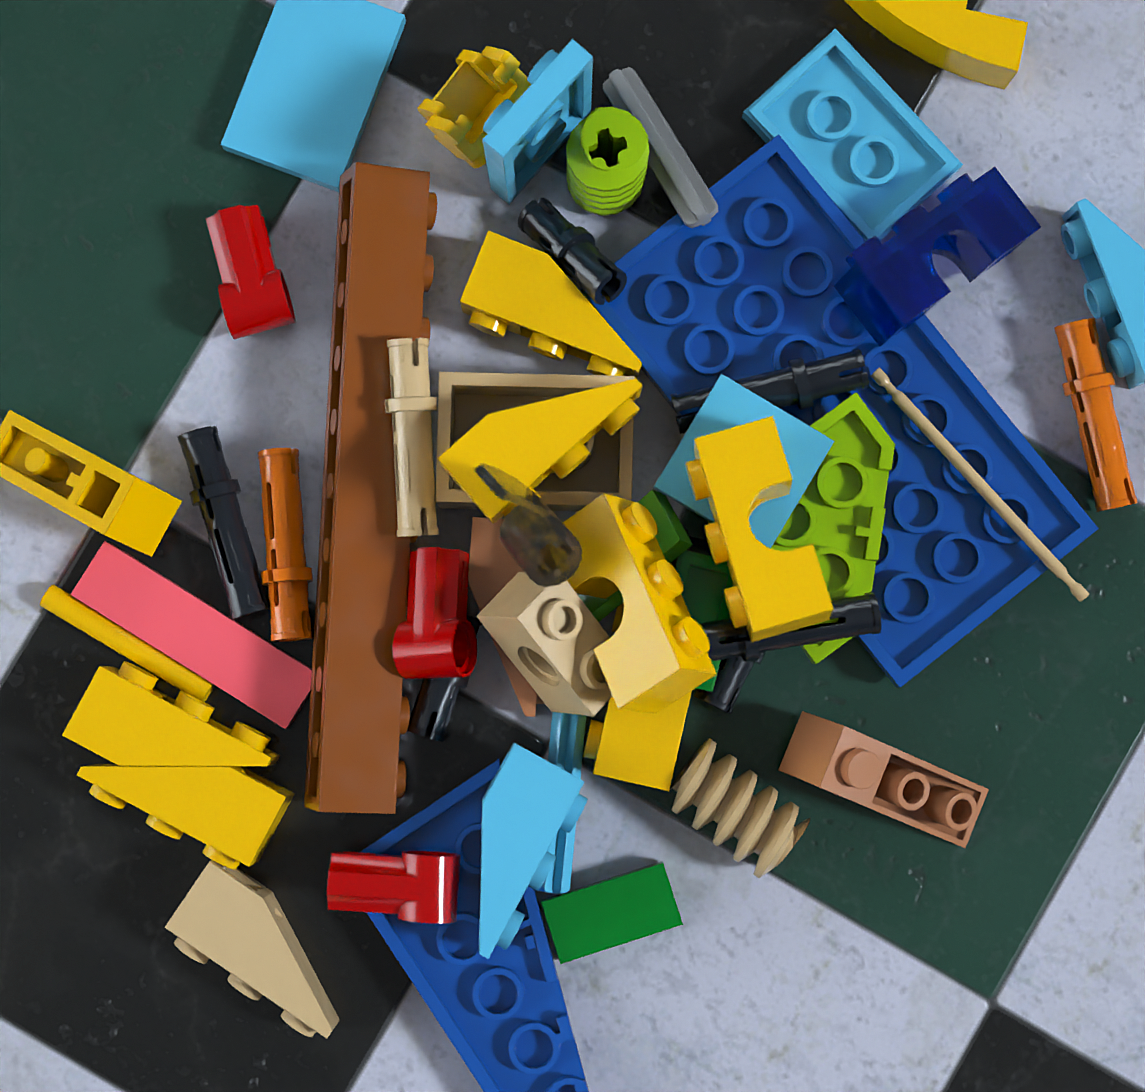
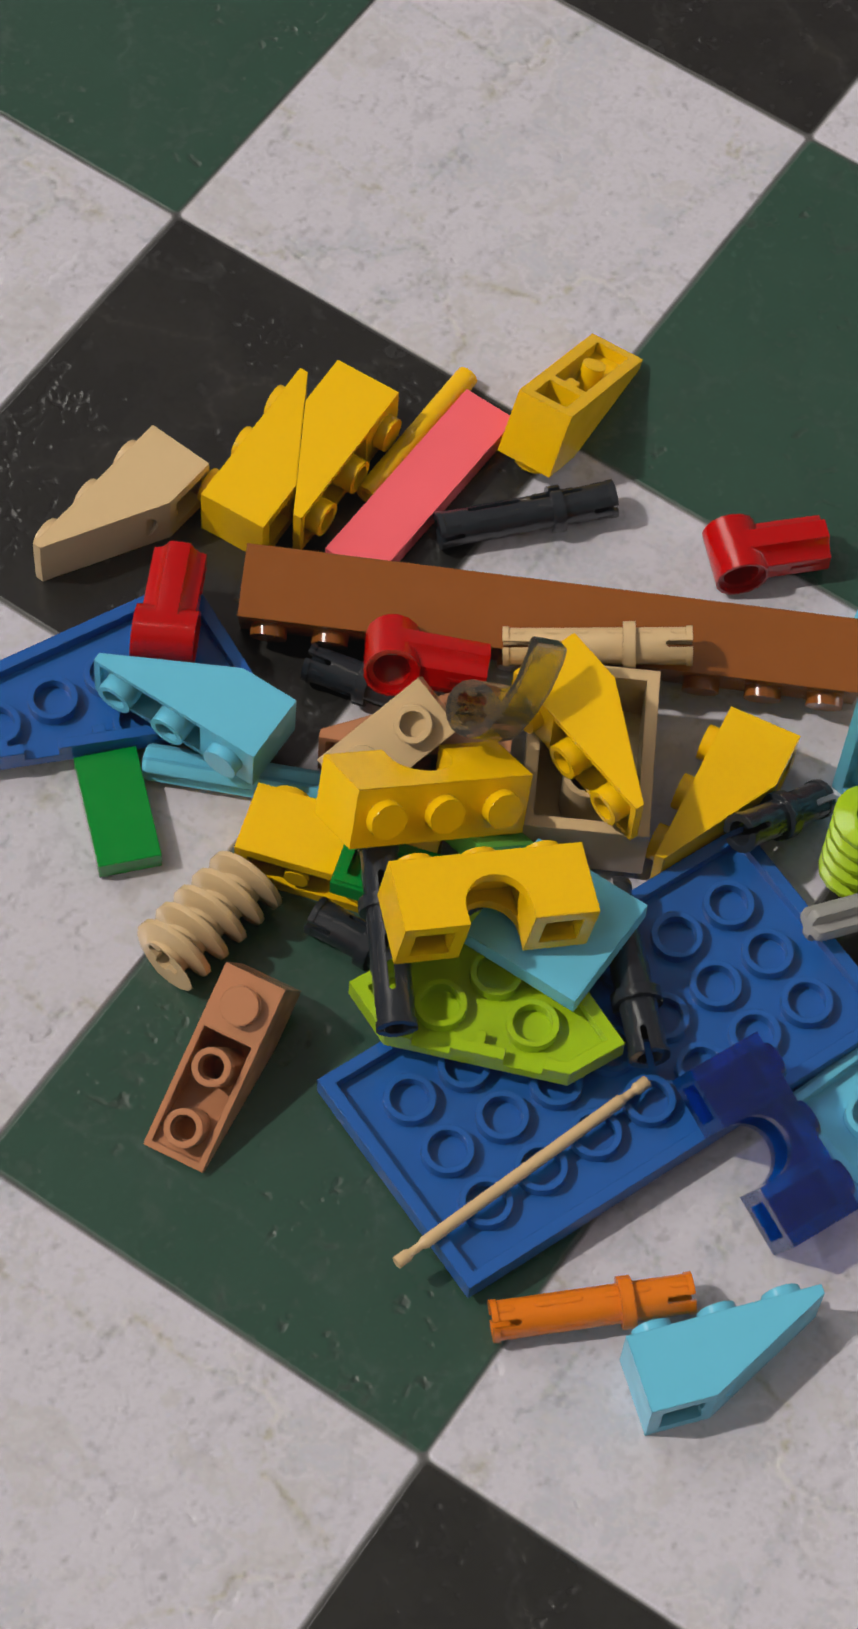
camera: 90 degrees right, 25 degrees down
(285, 552) = (534, 561): orange pin -> none

